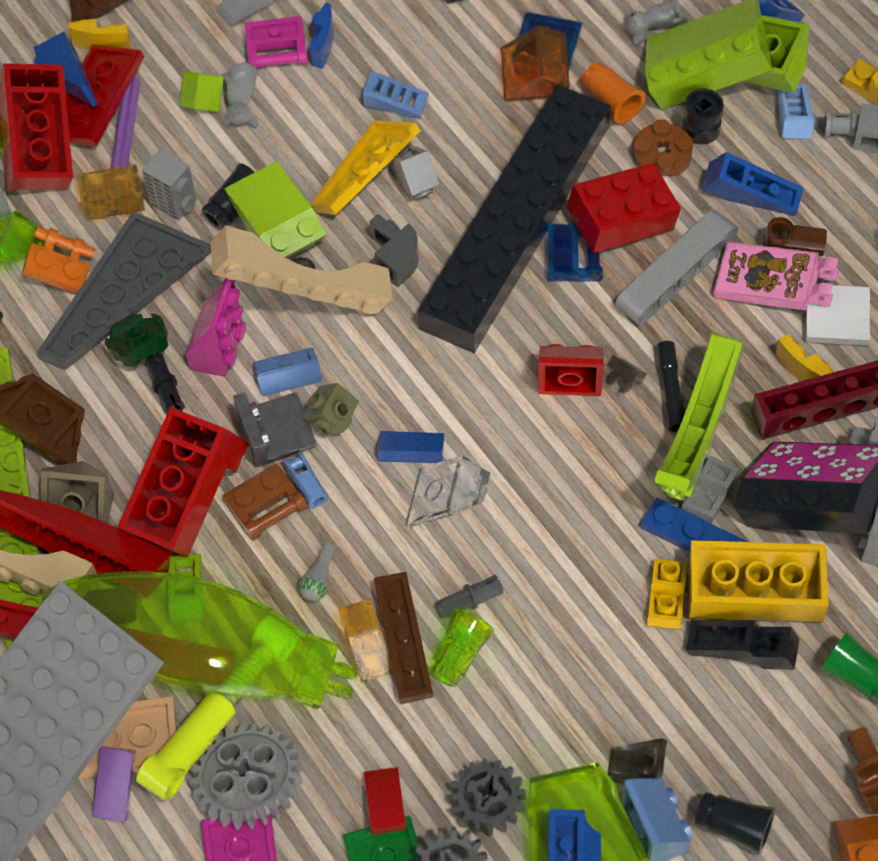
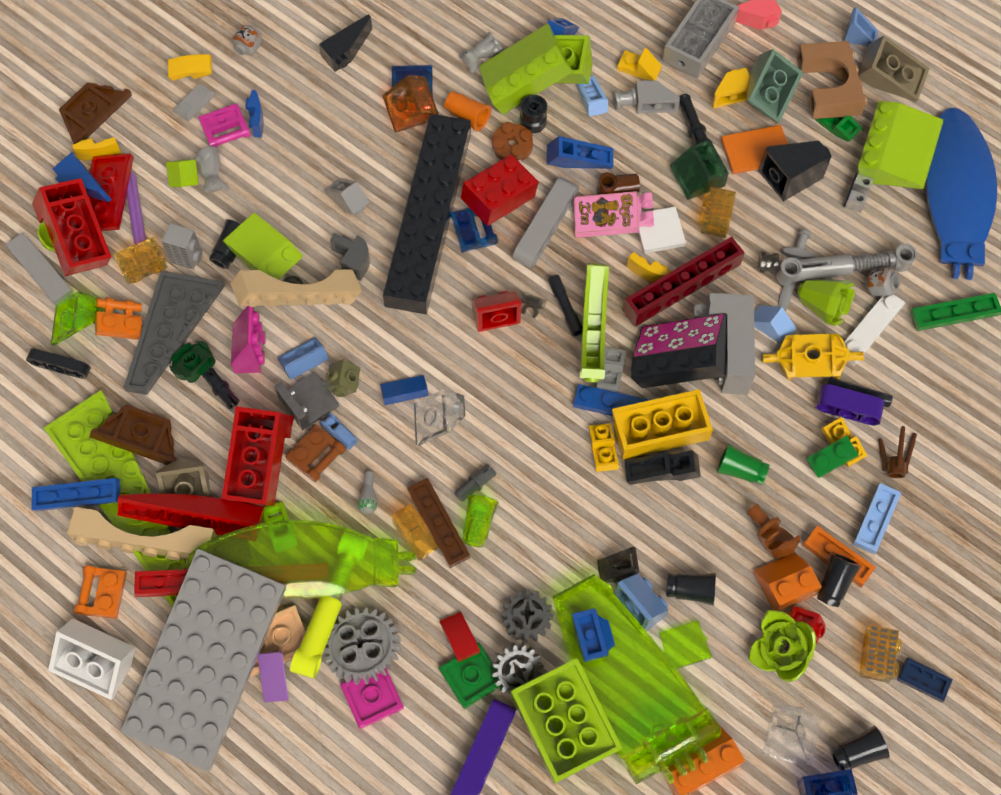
camera: 20 degrees left, 5 degrees up
(363, 162) = (312, 198): yellow wing -> none
(386, 85) = (319, 140): medium blue slope -> none

